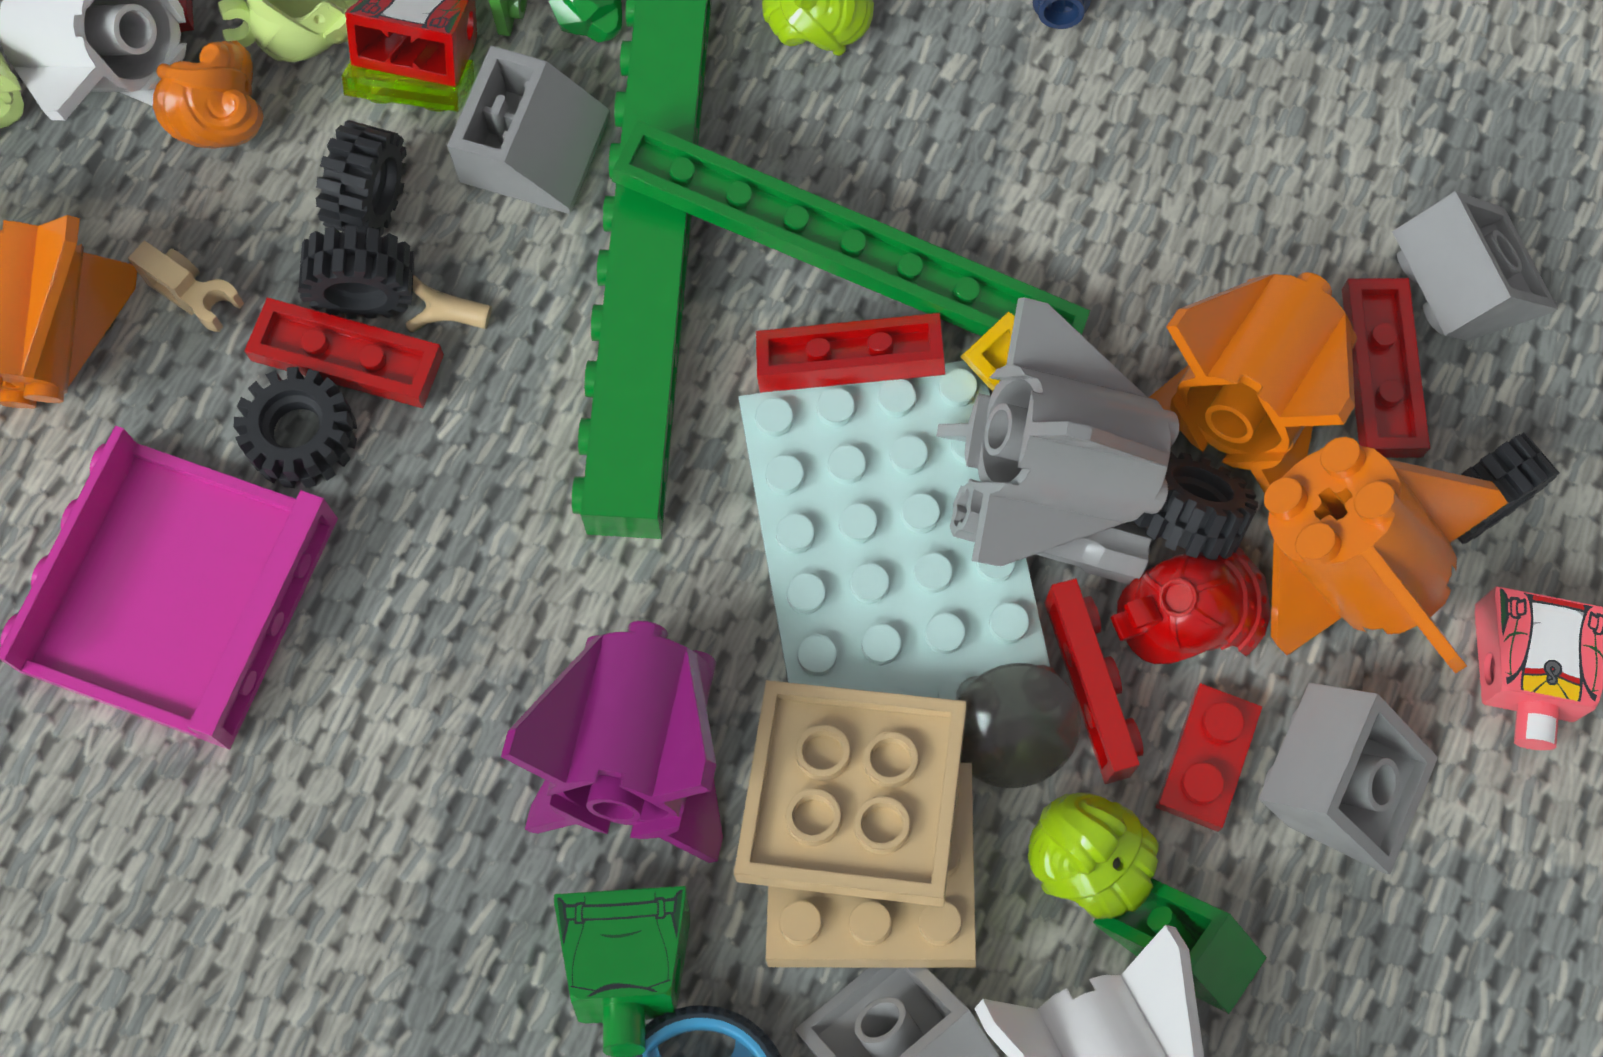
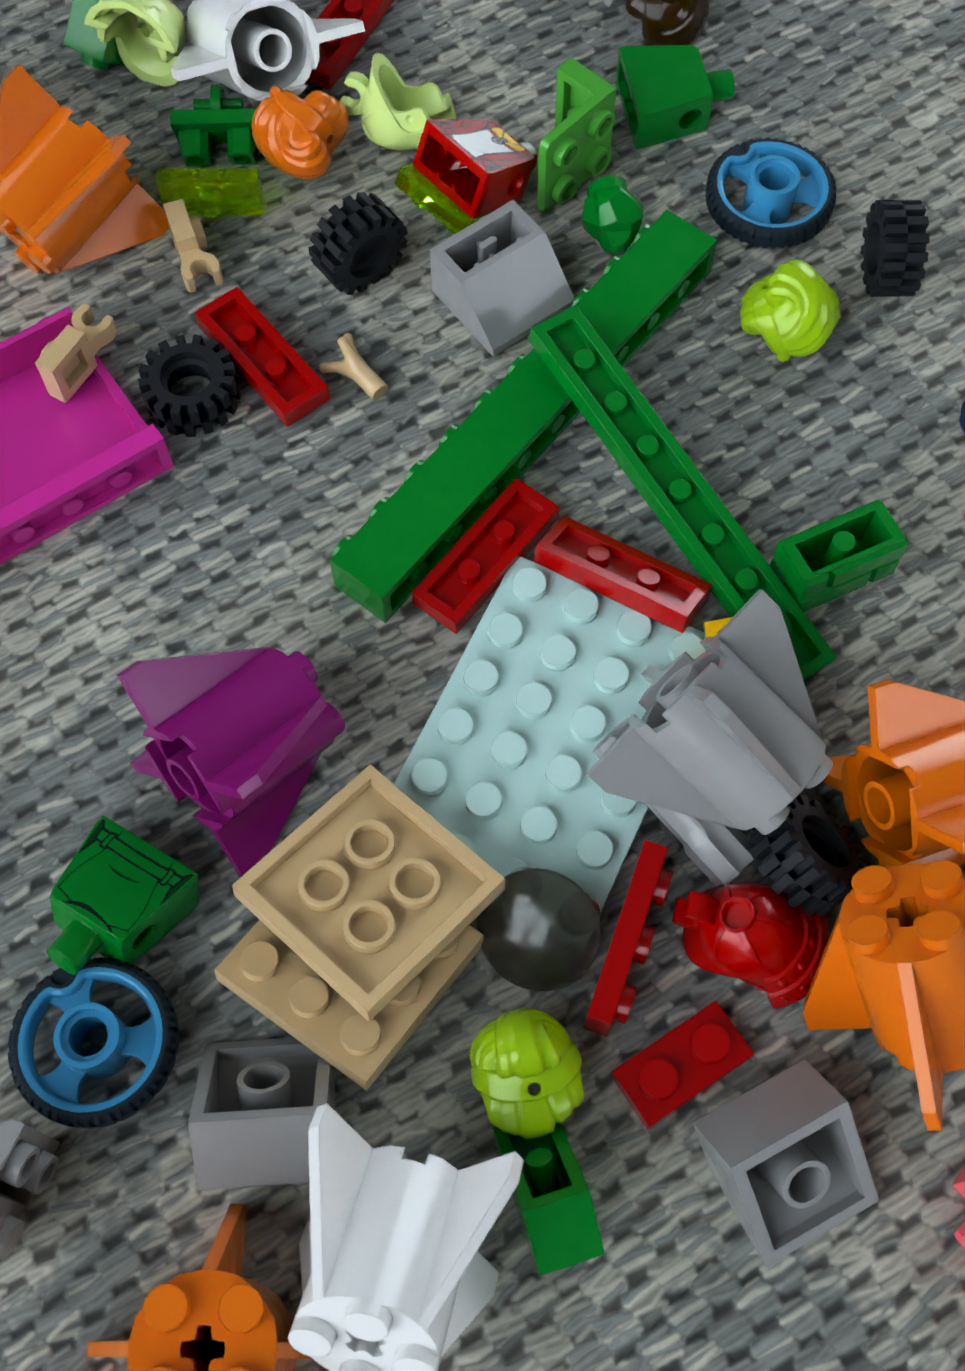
camera: 35 degrees right, 5 degrees down
(107, 132) = (215, 122): none -> green hips
(158, 479) = (70, 357): none -> tan plate
(159, 212) = (213, 190): none -> clear neon green plate
(356, 273) = (305, 302): black tyre -> none
(711, 415) = (484, 555): none -> red plate
(1031, 214) = (839, 555): none -> green brick

